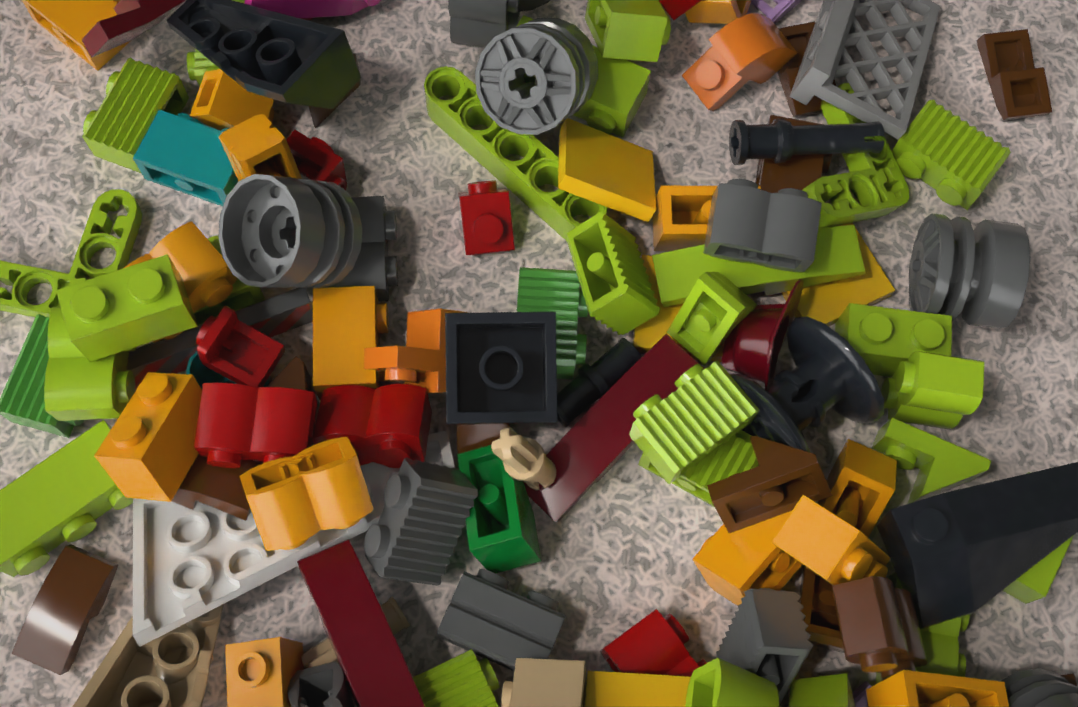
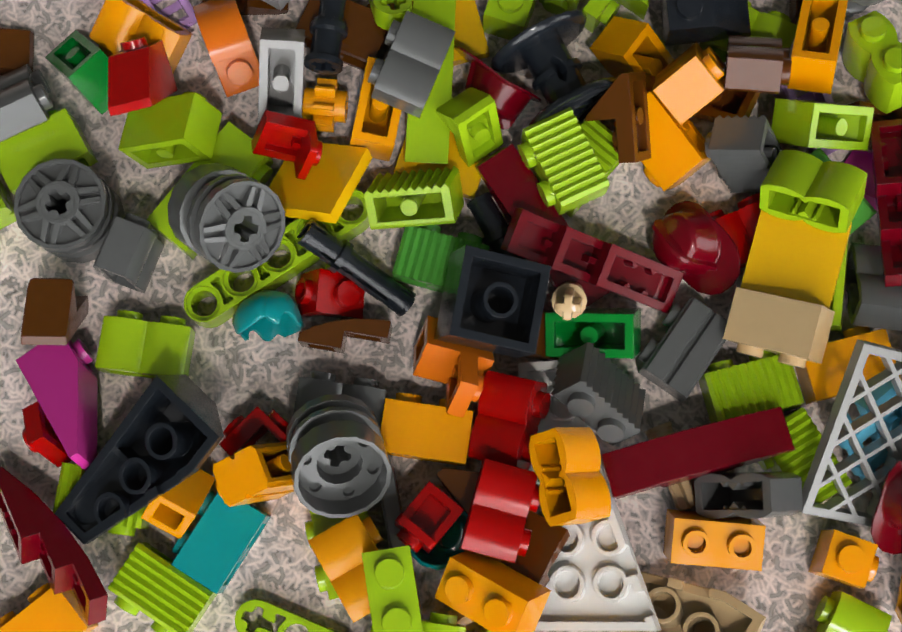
camera: 75 degrees left, 10 degrees up
(389, 50) = (144, 347): none -> lime brick
(441, 232) = (333, 335): none -> reddish brown slope
(452, 153) = (267, 315): none -> teal hair
(517, 227) = (343, 259): none -> black pin
(582, 488) = (592, 260): none -> dark red slope
(631, 609) = (696, 246): none -> dark red piece
(643, 125) = (289, 140): none -> red bracket
(697, 164) = (325, 104): none -> light orange gear
(704, 109) = (281, 71): none -> light grey brick

